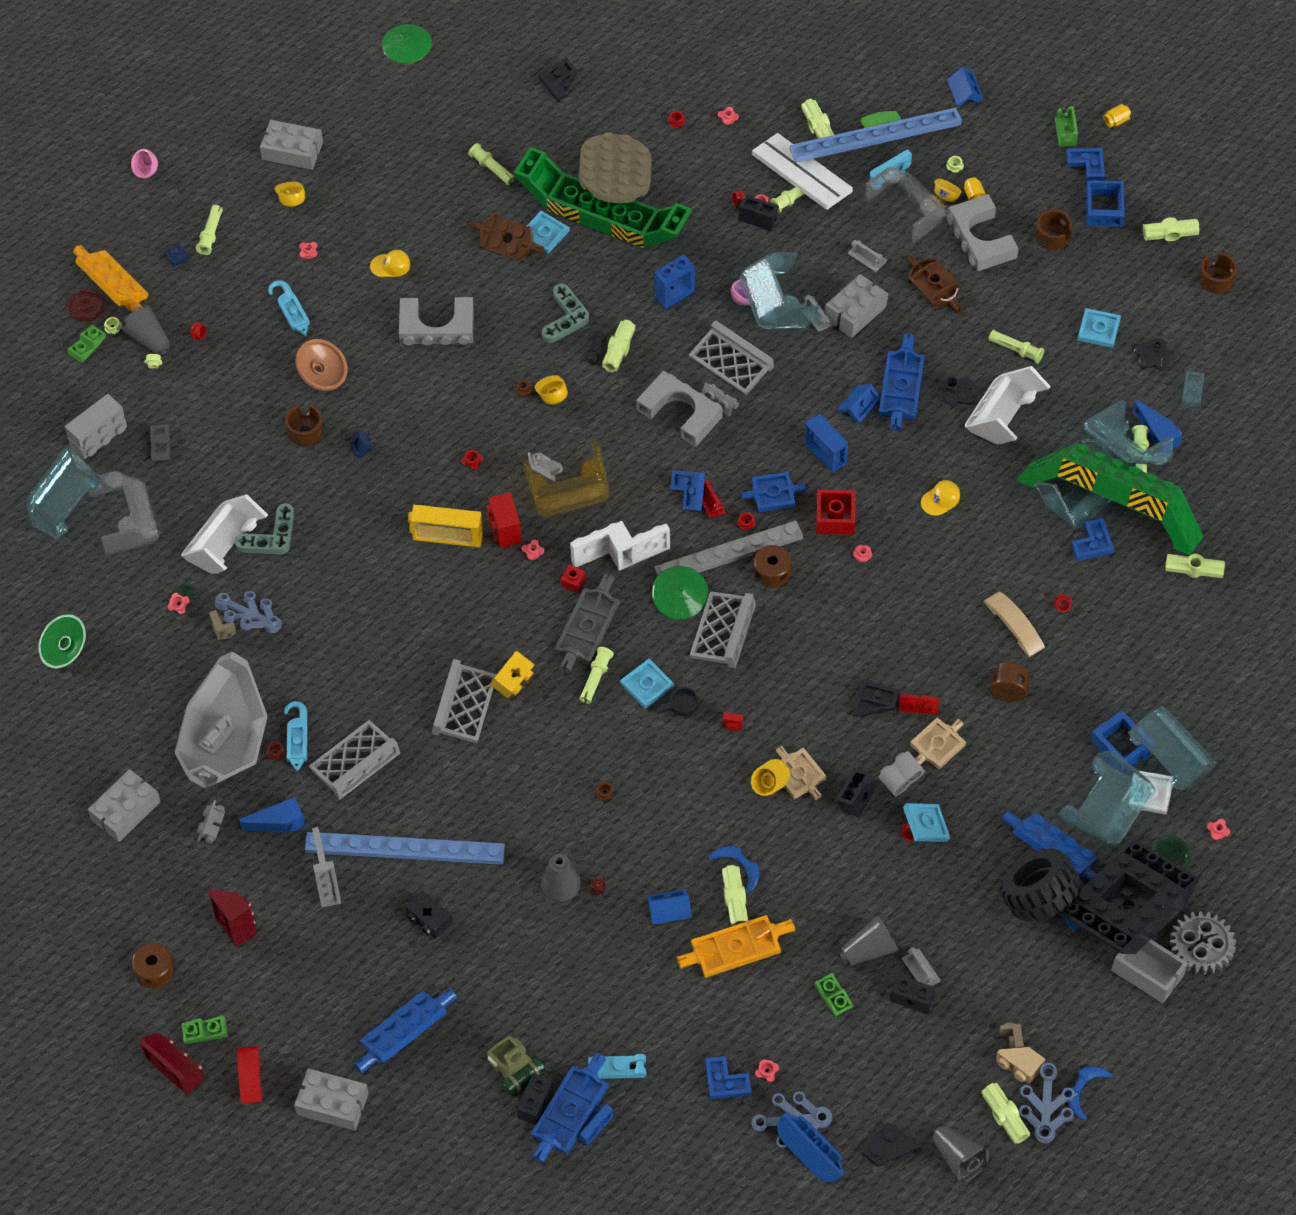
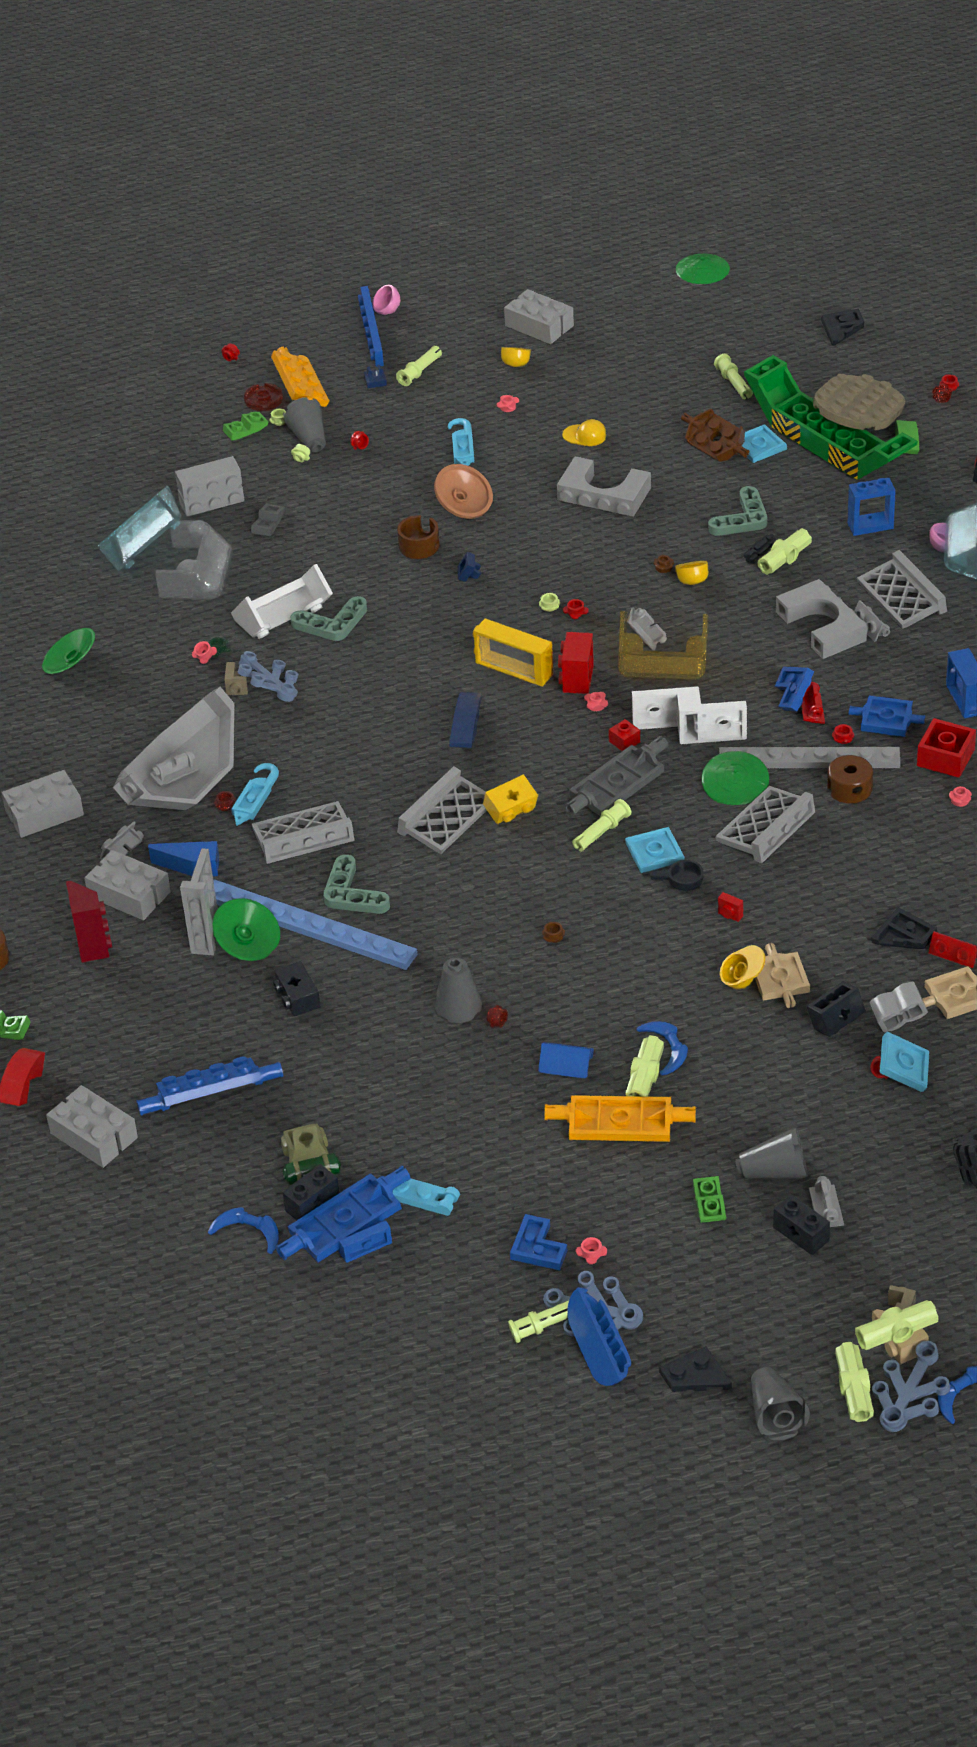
camera: 25 degrees right, 15 degrees down
(30, 263) = (230, 352): none -> red plate
(148, 202) = (370, 326): none -> blue plate
(239, 862) = (128, 884): none -> light grey piece
(361, 873) = (246, 929): none -> green hat
(416, 807) = (343, 890): none -> sand green beam
(436, 605) = (465, 720): none -> dark blue slope
(447, 455) = (549, 602): none -> yellowish green plate
(507, 1136) = (238, 1215): none -> blue piece
(667, 189) = (909, 428): none -> bright green slope
(675, 133) = (941, 398): none -> clear red plate
(757, 1147) = (533, 1319): none -> yellowish green pin
(1022, 1060) = (896, 1325): none -> yellowish green piece

